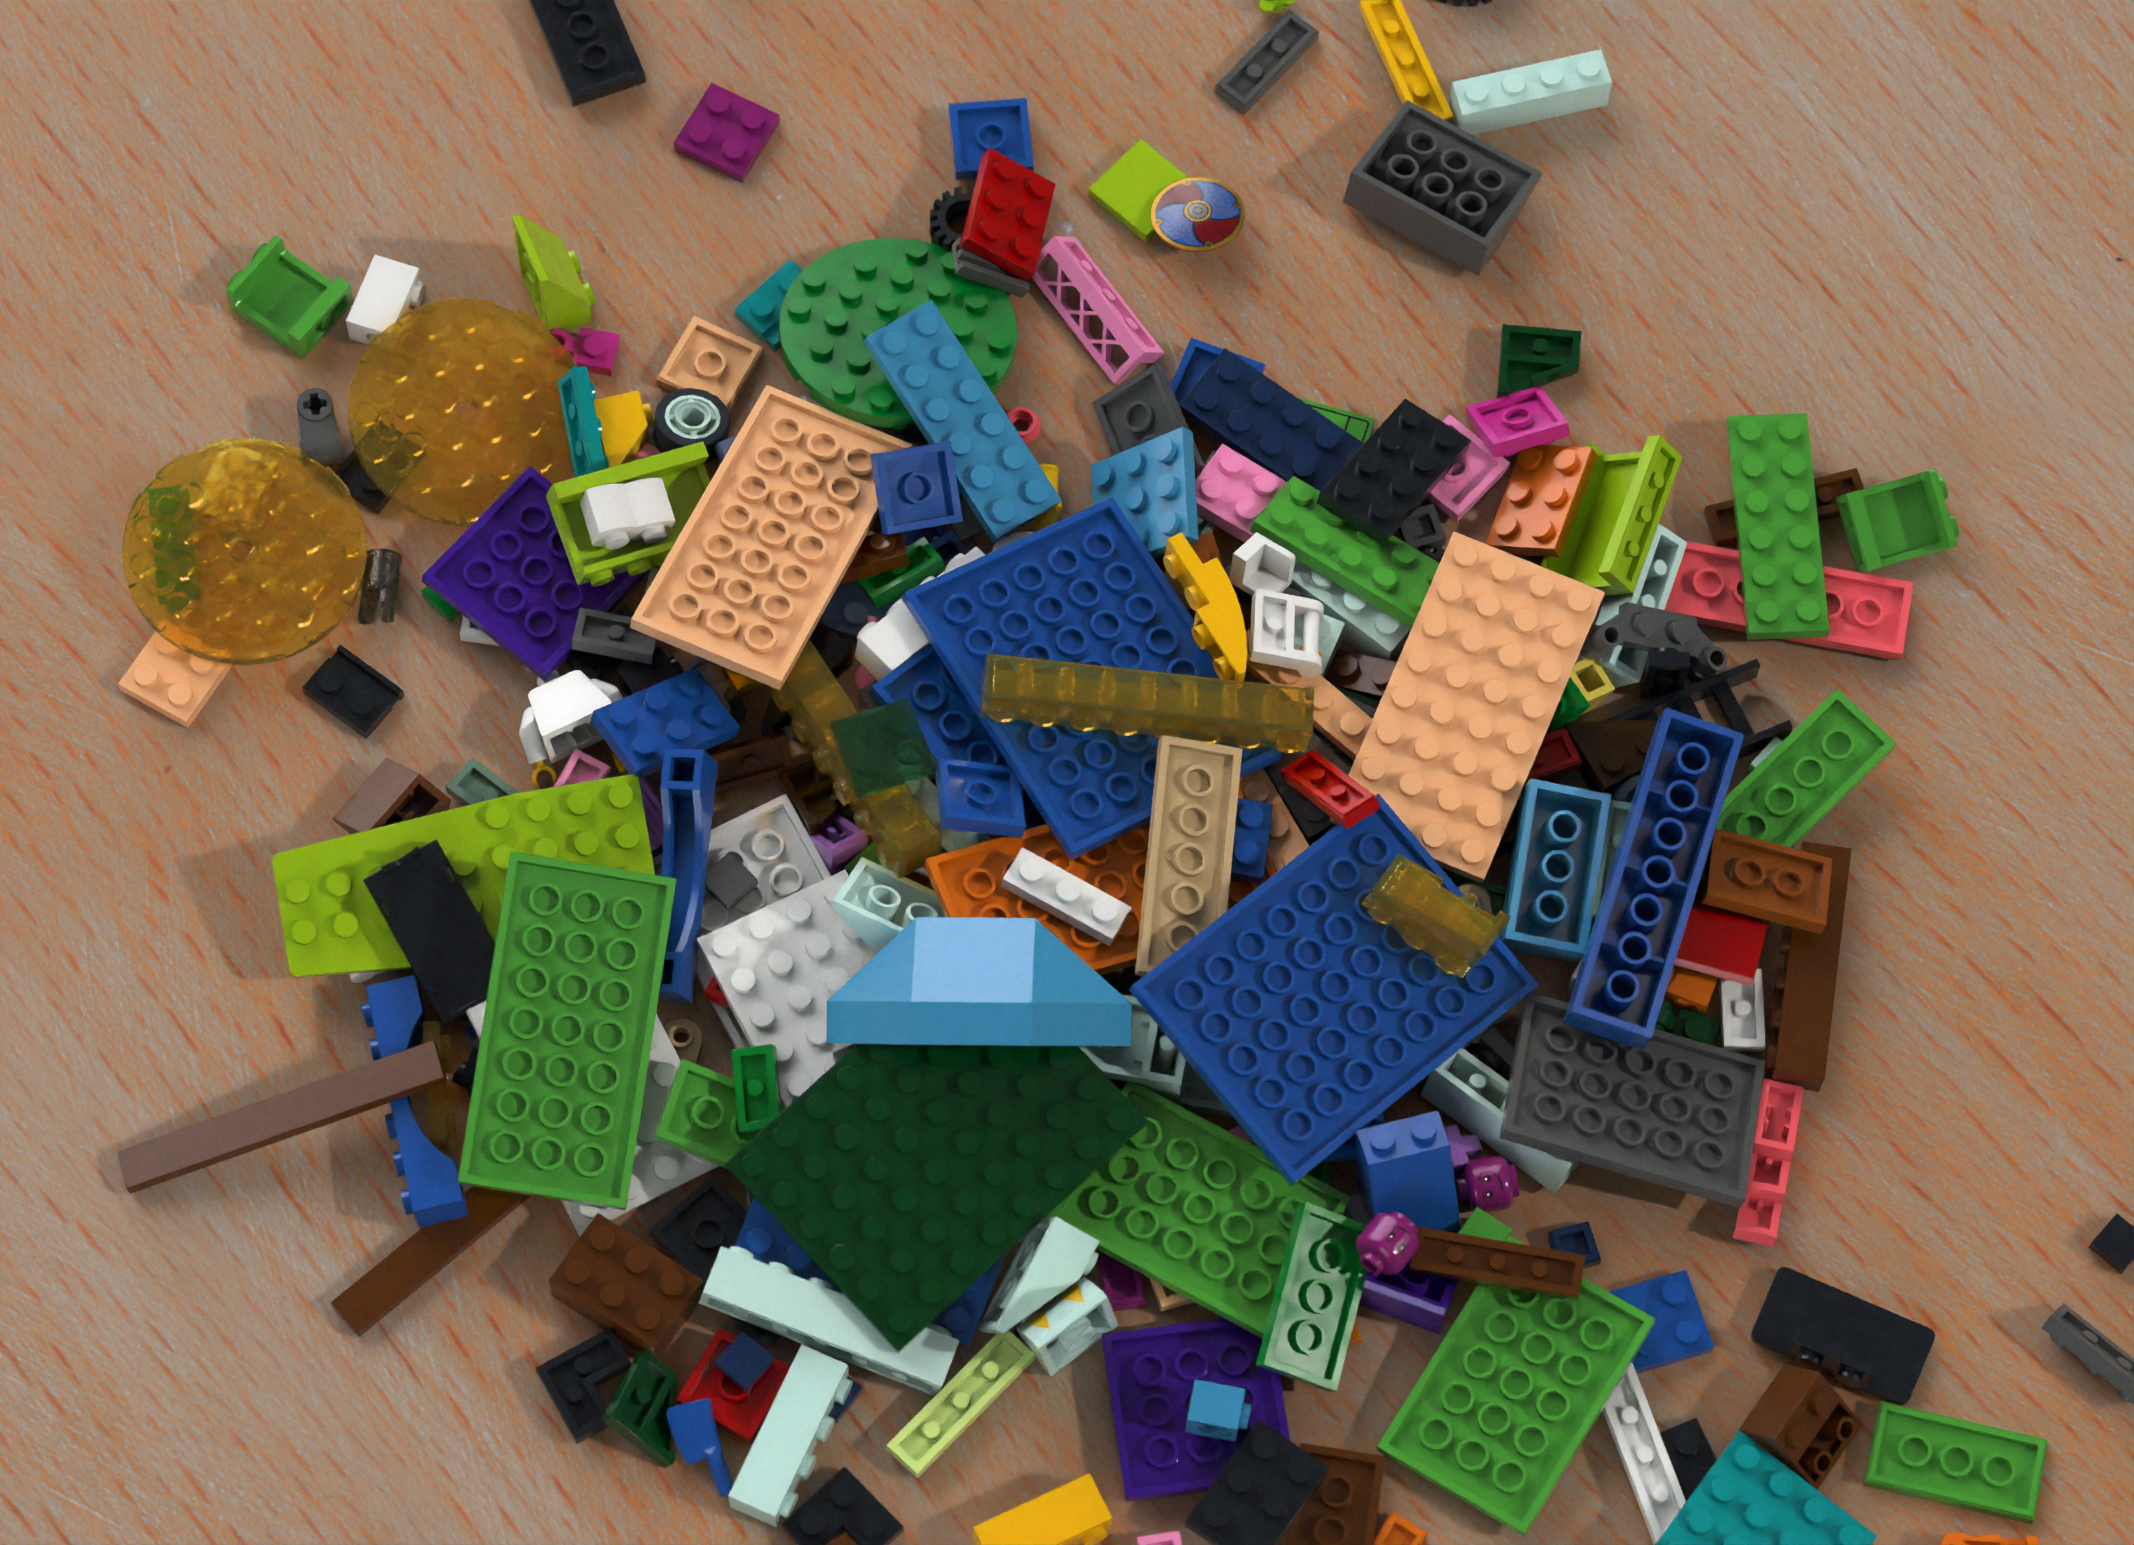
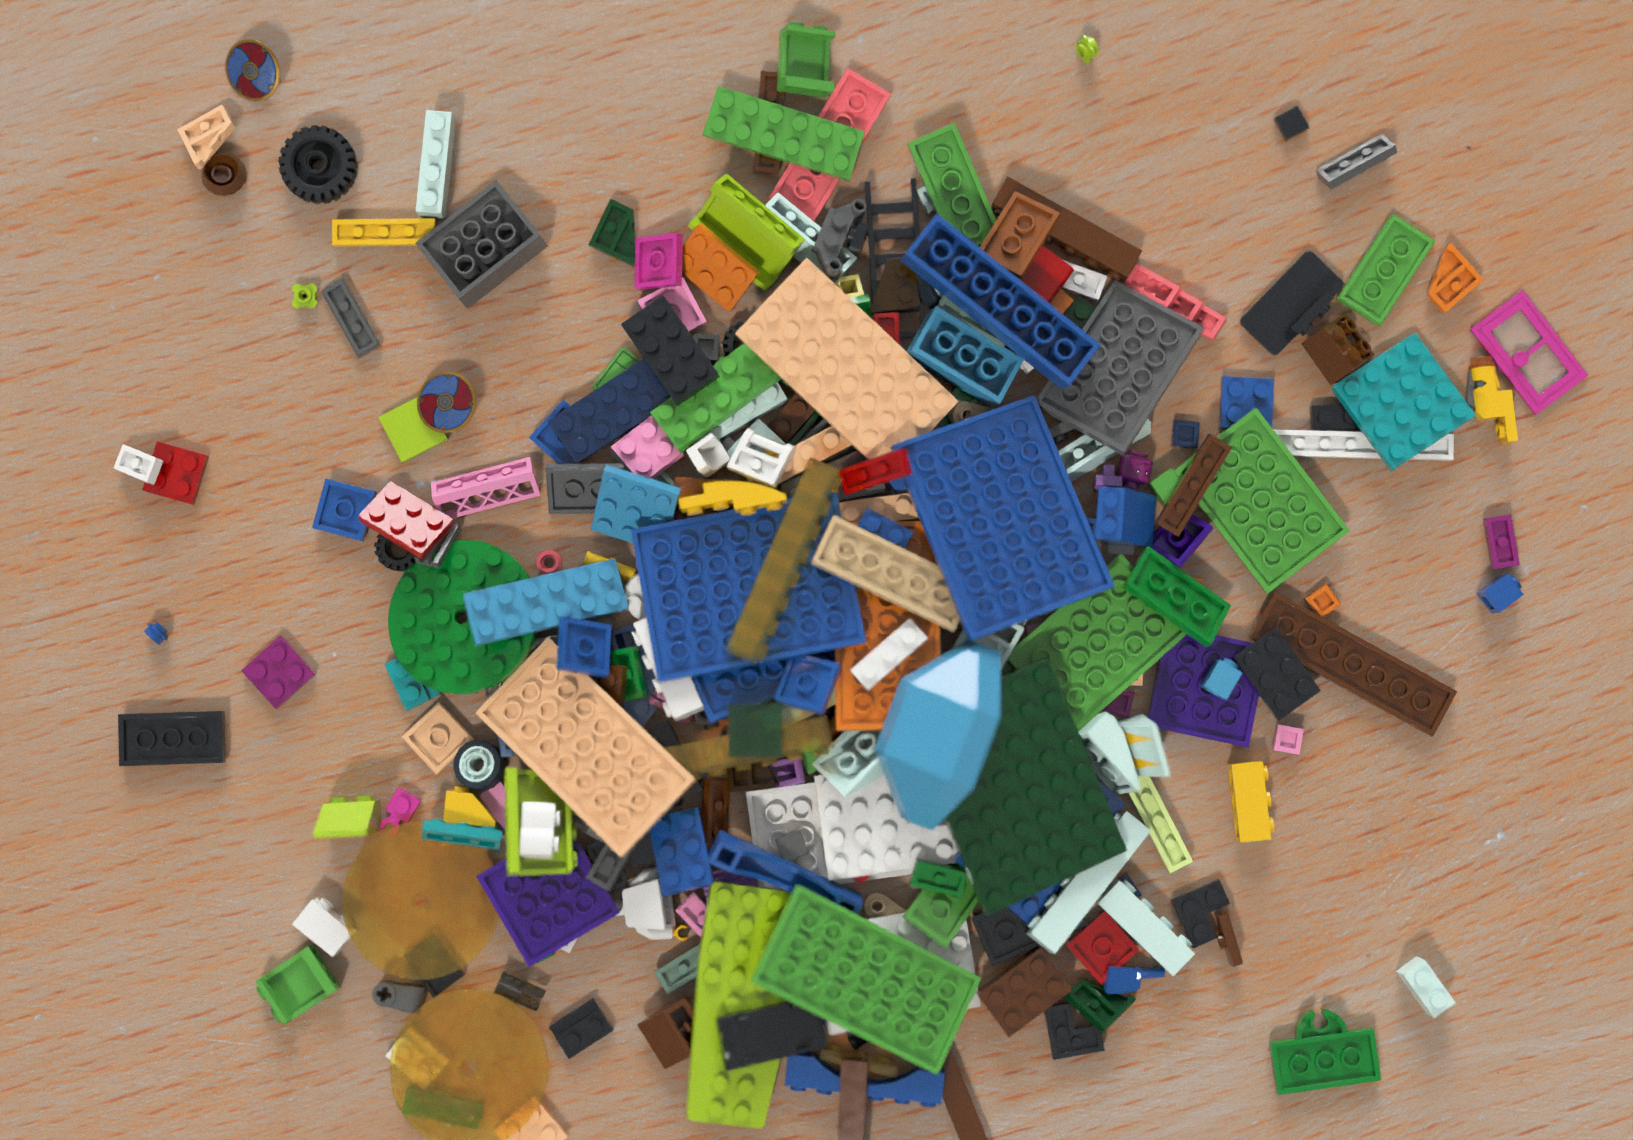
camera: 70 degrees left, 20 degrees up
(744, 1362) = (1094, 938): dark blue tile -> none
(1387, 1243) = (1164, 545): magenta head -> none
(1432, 916) = (985, 443): clear yellow wedge -> none
(2094, 905) = (1086, 49): none -> lime plate

